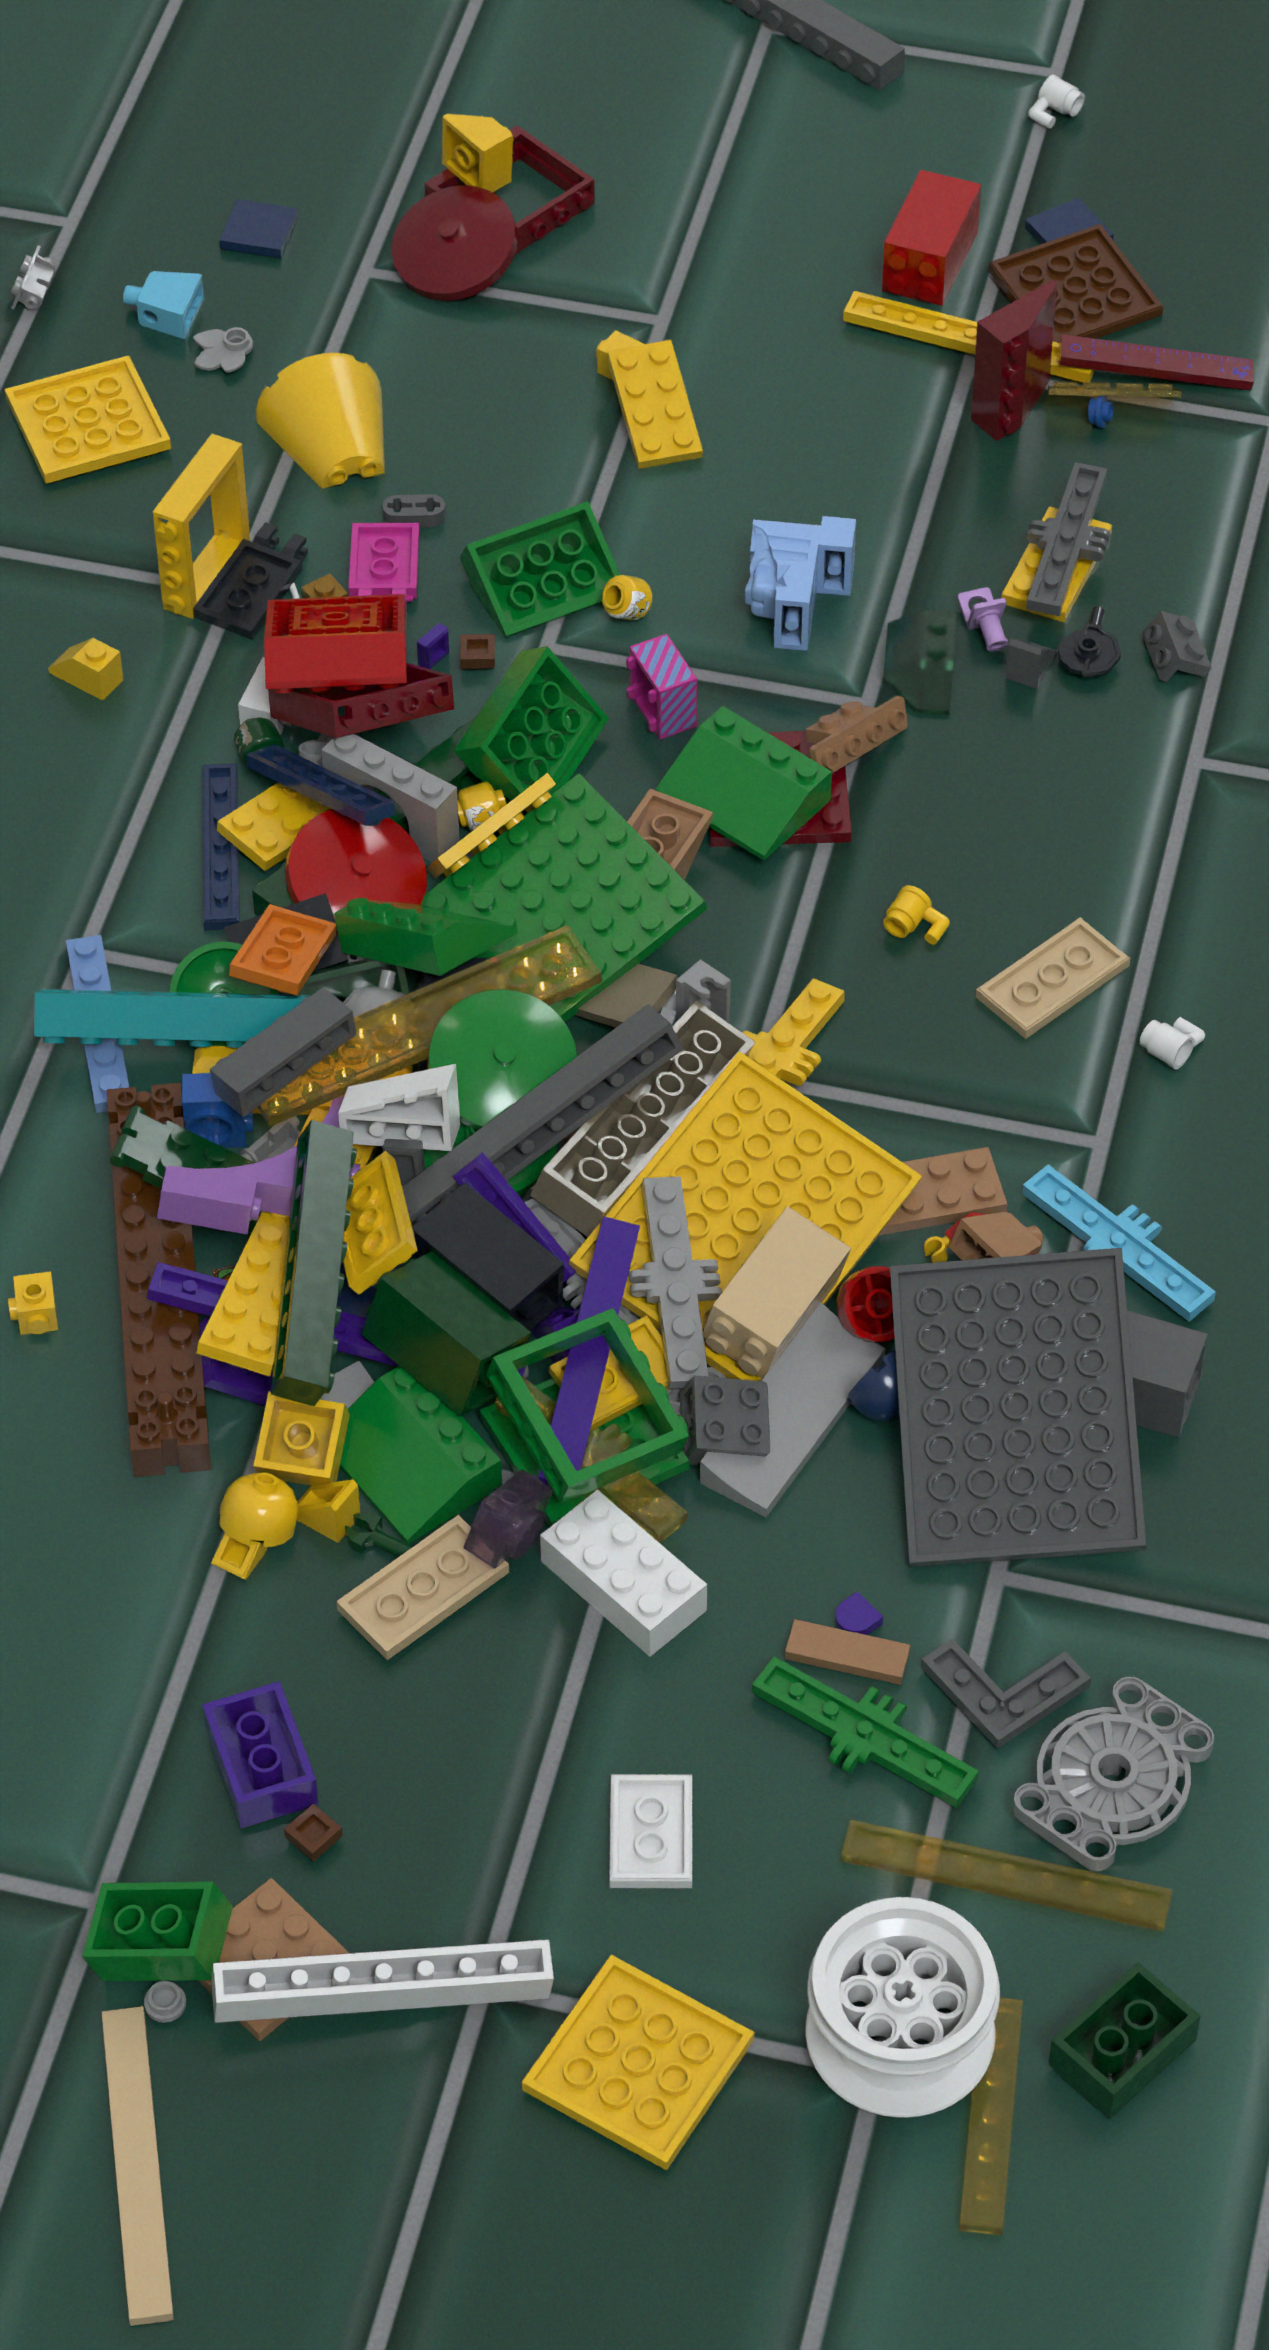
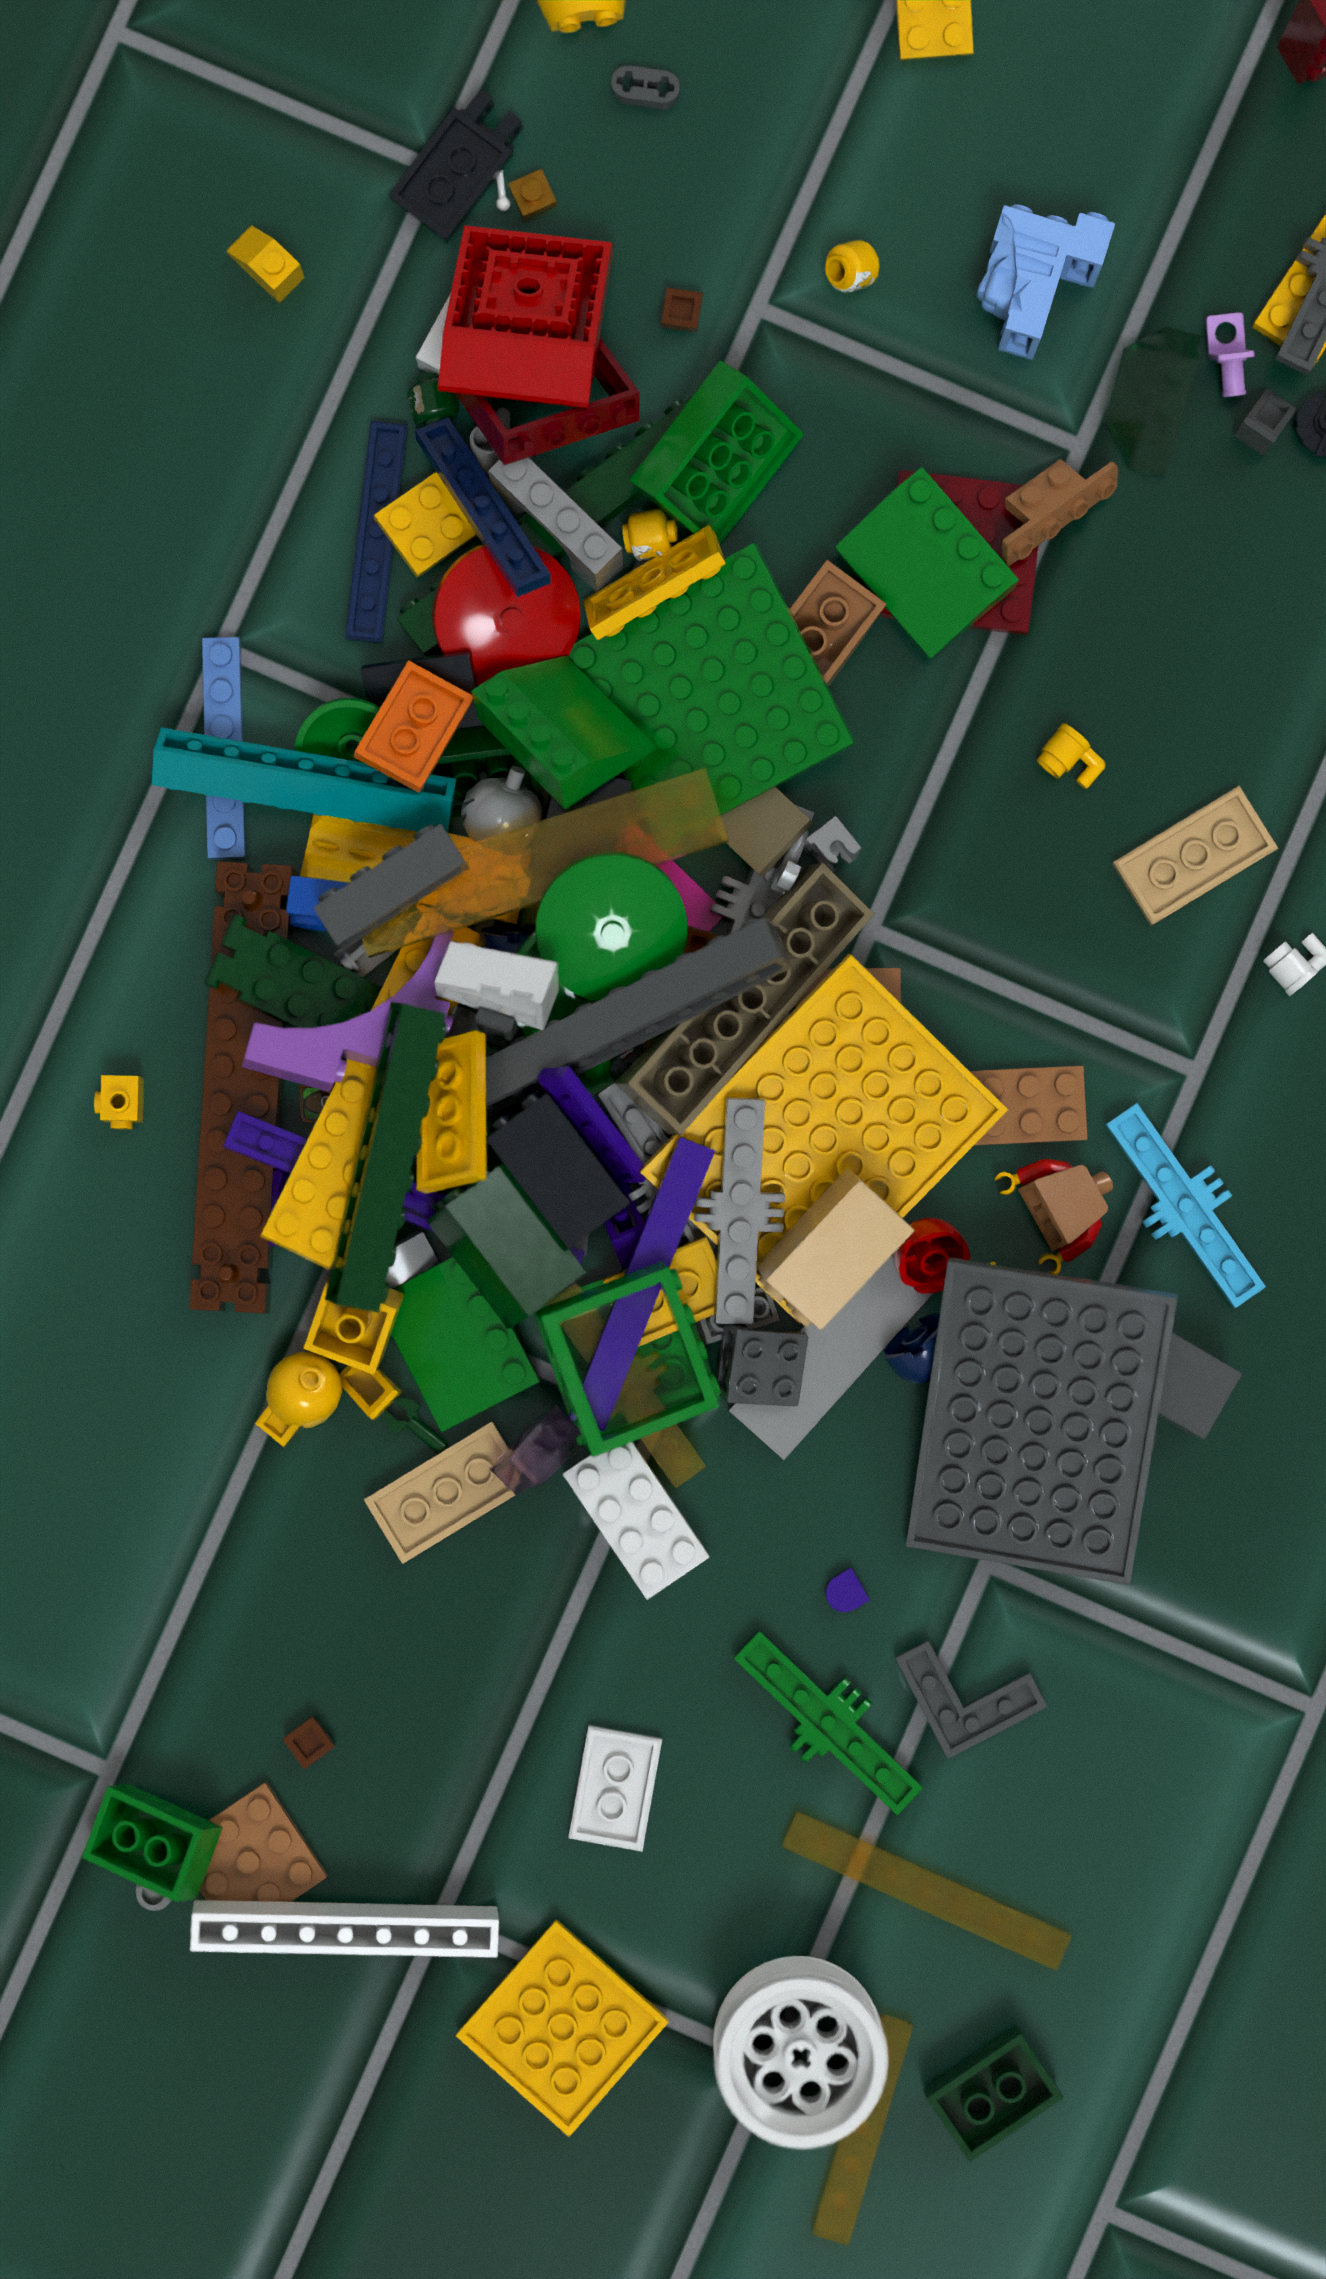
camera: 10 degrees right, 35 degrees up
(137, 2167) = (111, 2046): tan tile -> none
(214, 472) = (405, 110): yellow window -> none
(260, 1754) = (269, 1661): dark purple brick -> none
(384, 559) = (601, 165): dark pink tile -> none
(433, 646) = (635, 297): dark purple tile -> none
(540, 569) = (769, 208): green slope -> none
(662, 686) = (866, 408): dark pink container -> none
(785, 1045) = (899, 908): yellow hinge -> none
(847, 1652) = (830, 1628): medium nougat tile -> none
(1099, 1745) = (1037, 1849): light grey piece -> none

